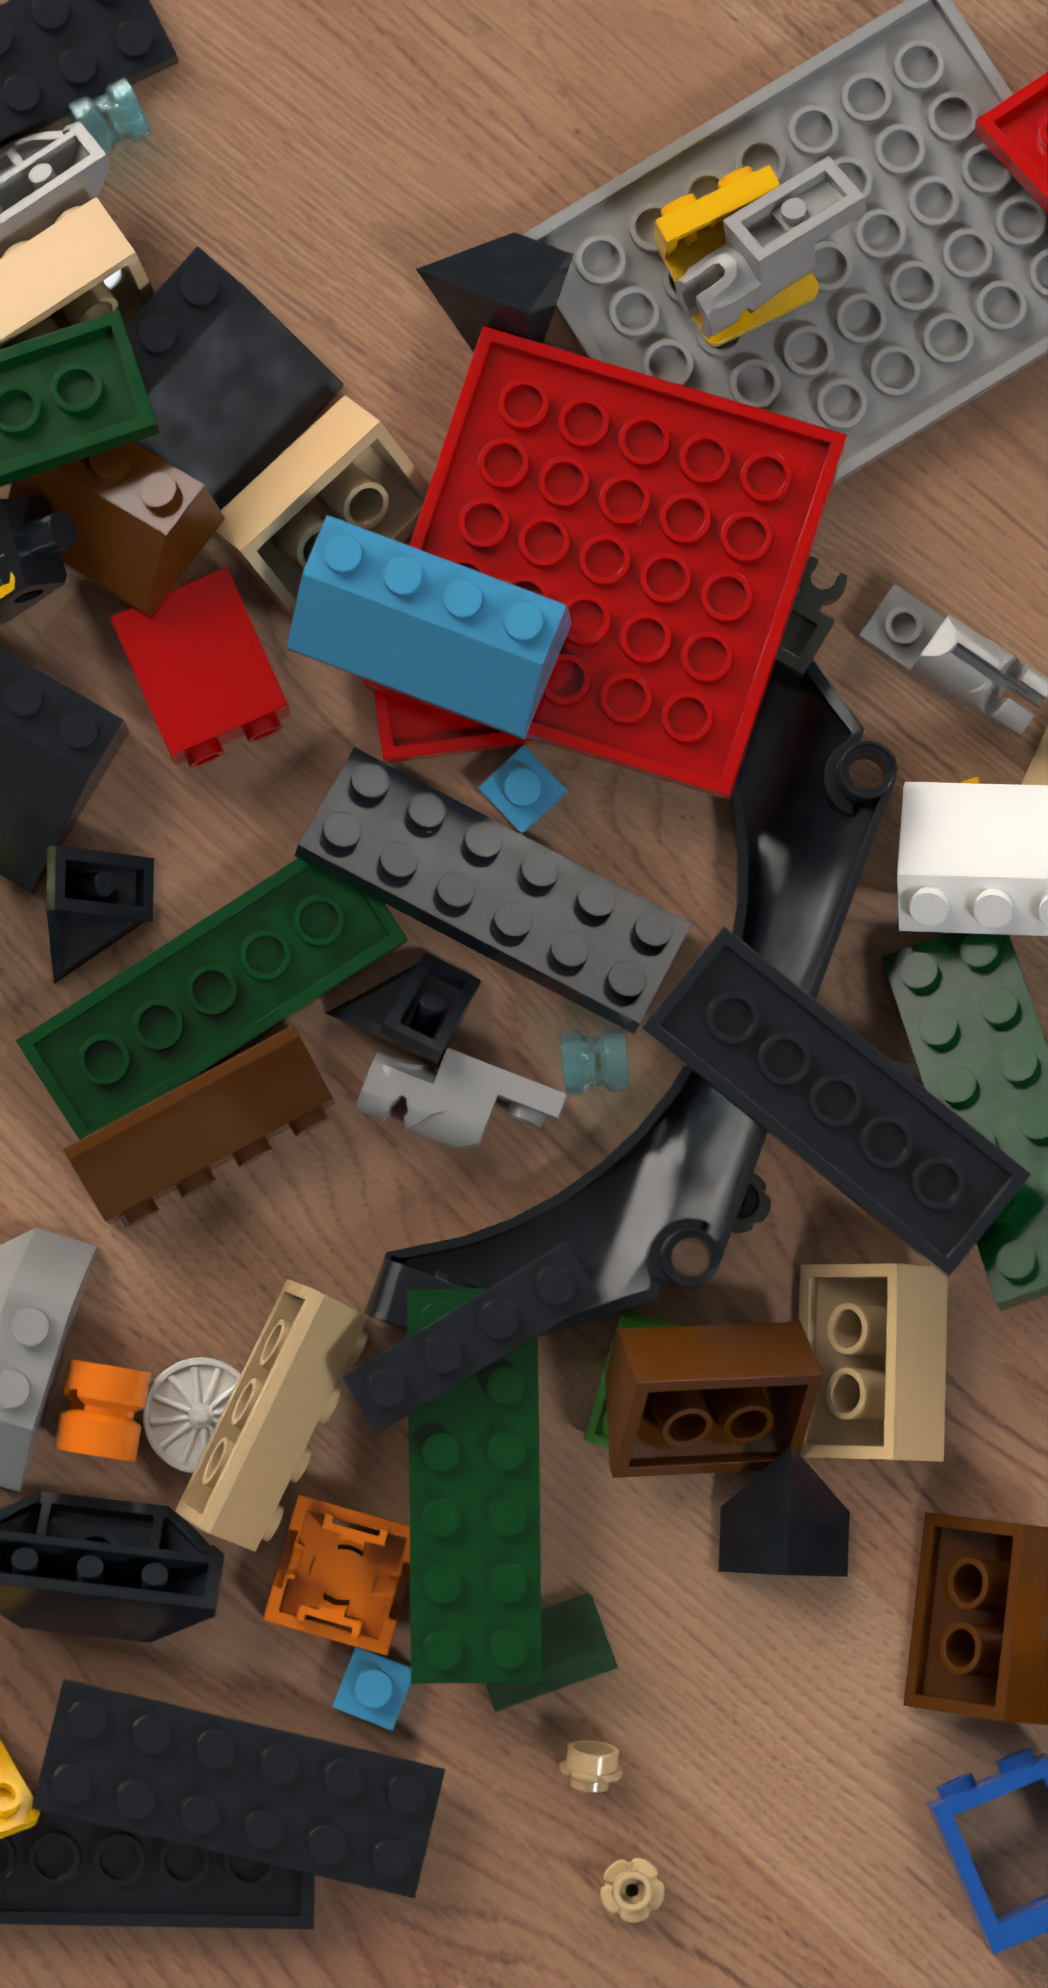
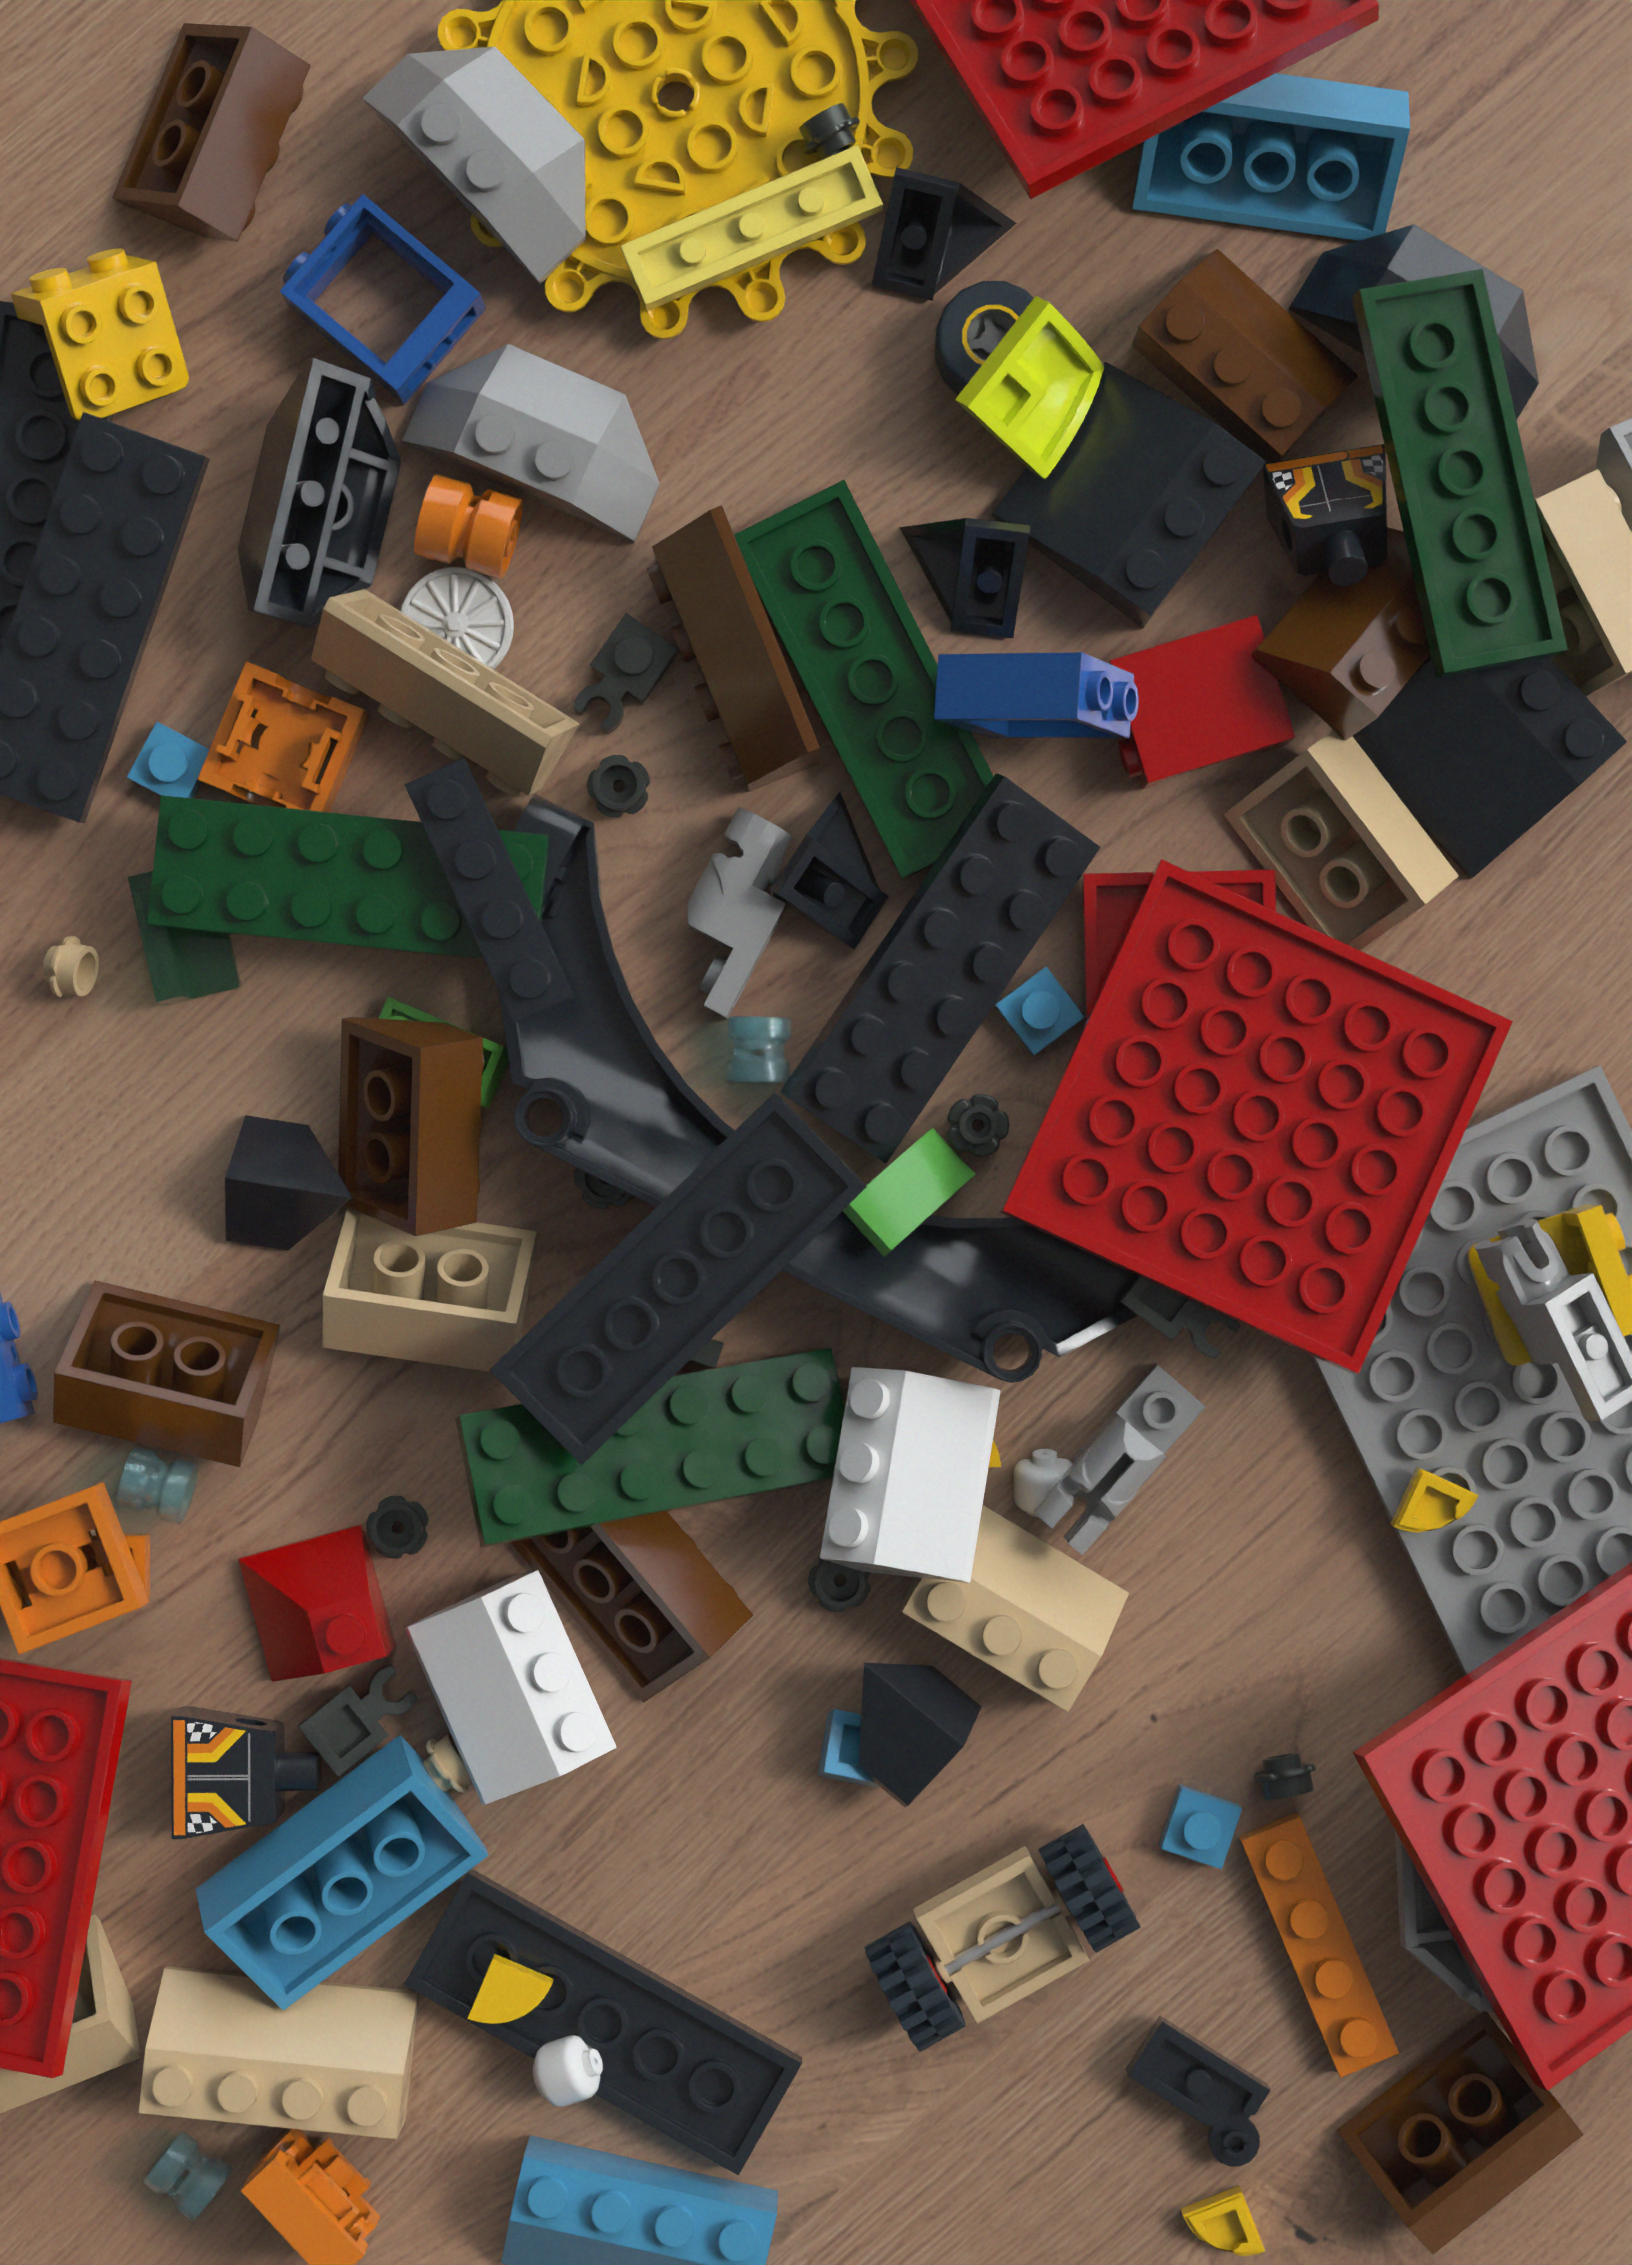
camera: 95 degrees right, 5 degrees up
(216, 822) = (1035, 695): none -> blue window
(222, 1235) = (630, 664): none -> pearl dark grey plate
(363, 1233) = (615, 769): none -> pearl dark grey plate
(427, 627) = (1208, 926): dark azure slope -> none
(500, 286) = (1552, 1045): black slope -> none
(631, 850) = (961, 1132): none -> pearl dark grey plate
(718, 893) = (908, 1191): none -> bright green slope
(962, 354) = (1431, 1503): none -> yellow tile
(985, 741) = (1036, 1477): none -> white piece

